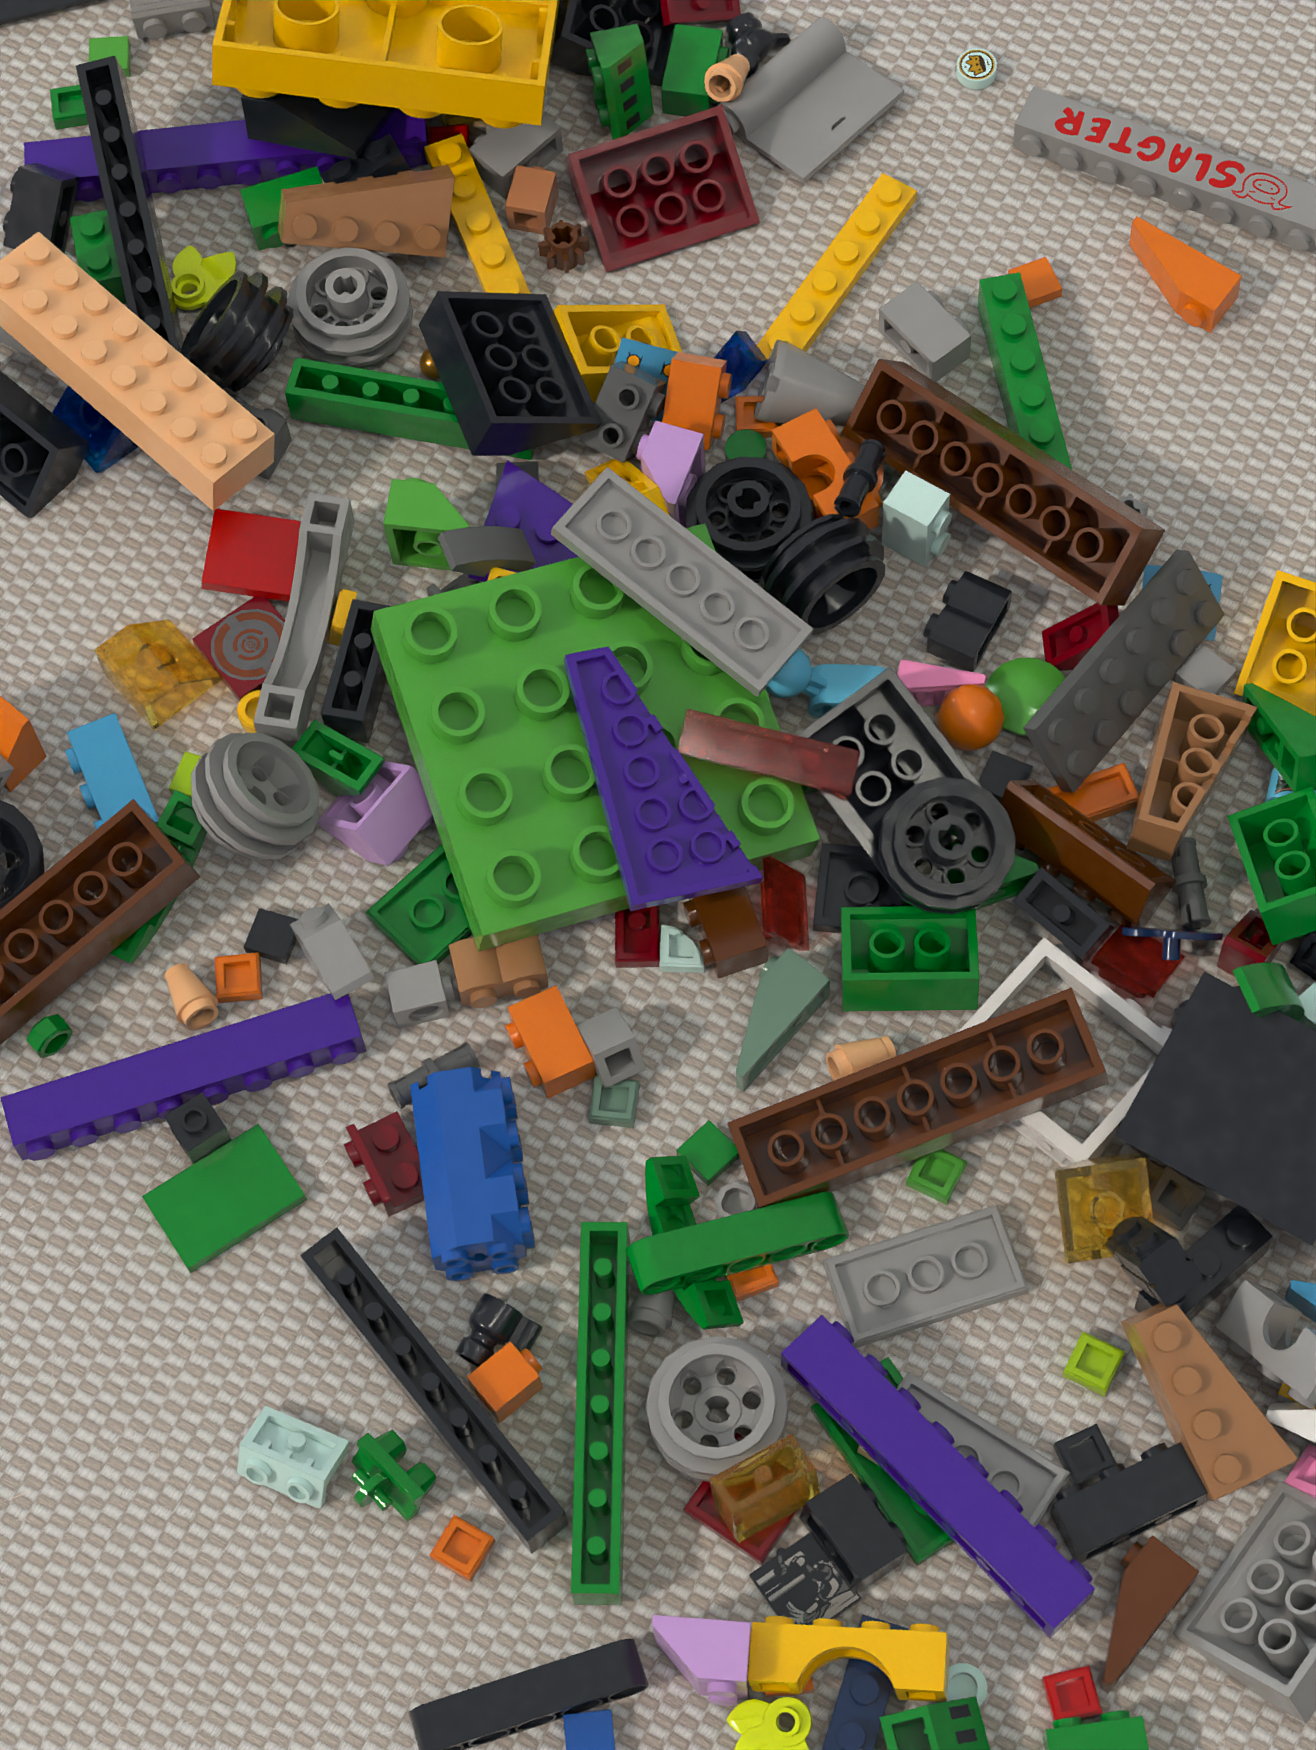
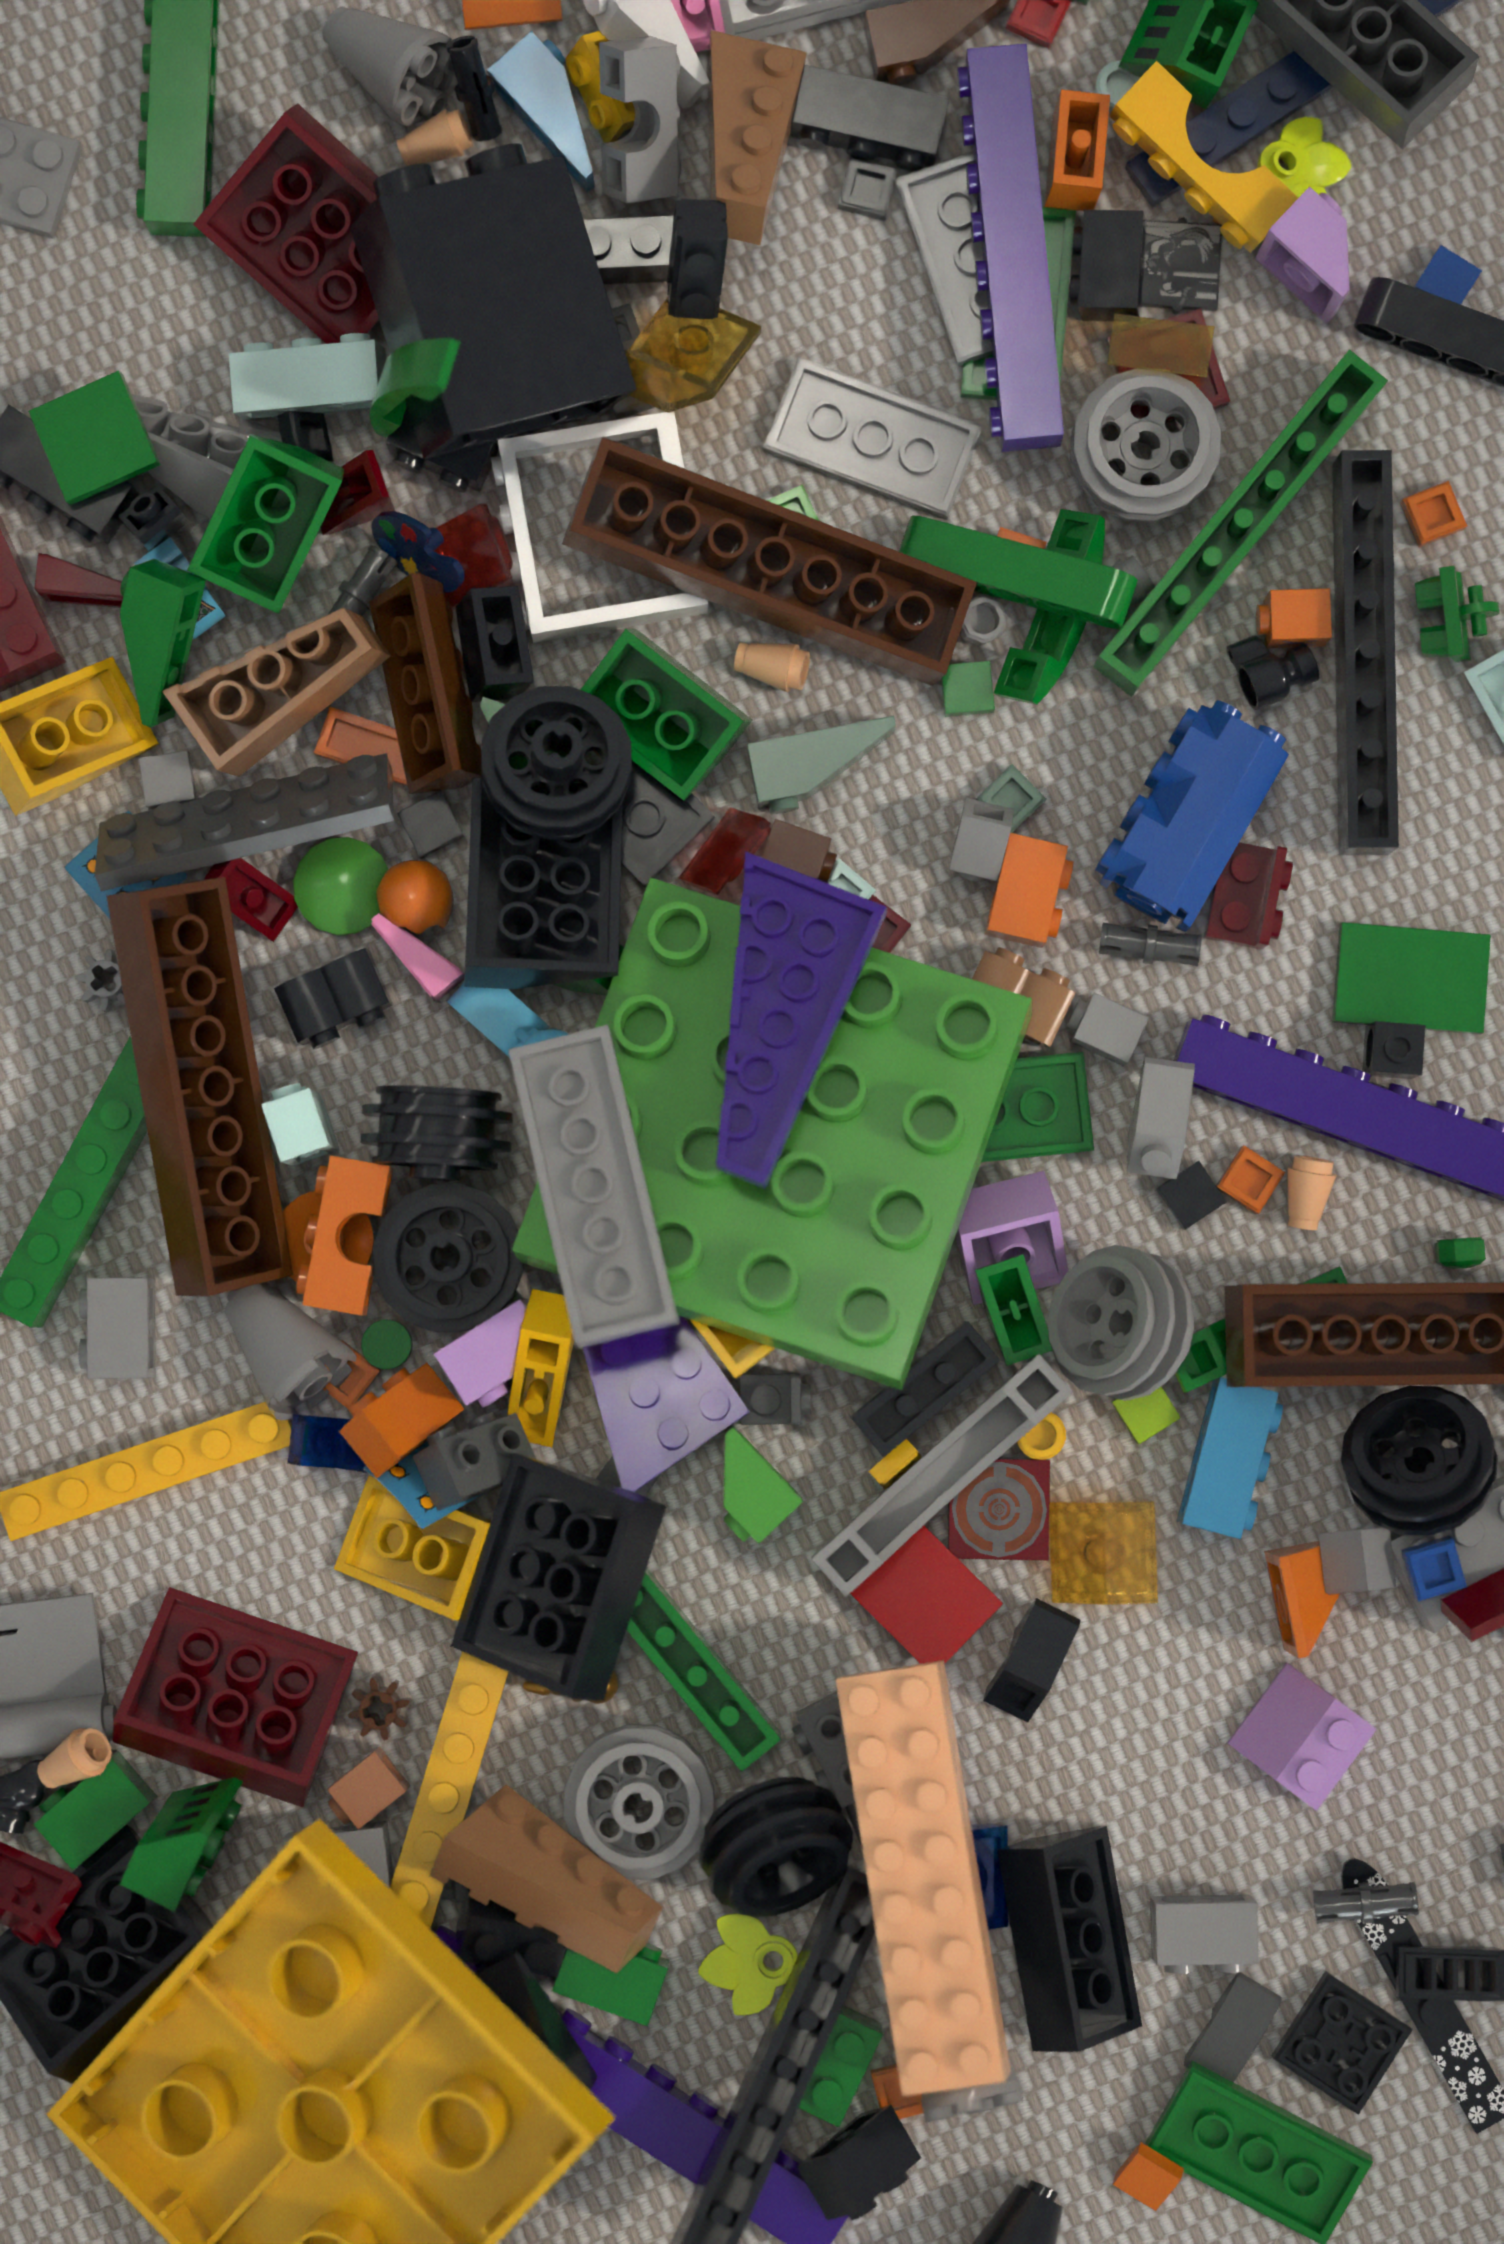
camera: 150 degrees left, 20 degrees up
(155, 571) = (1032, 1660): none -> black slope
(484, 547) = (727, 1397): dark grey slope -> none
(768, 752) = (643, 970): clear red tile -> none
(860, 478) = (327, 1189): black pin -> none
(950, 1594) = (1077, 150): none -> orange brick
(1093, 1363) = (796, 256): lime tile -> none

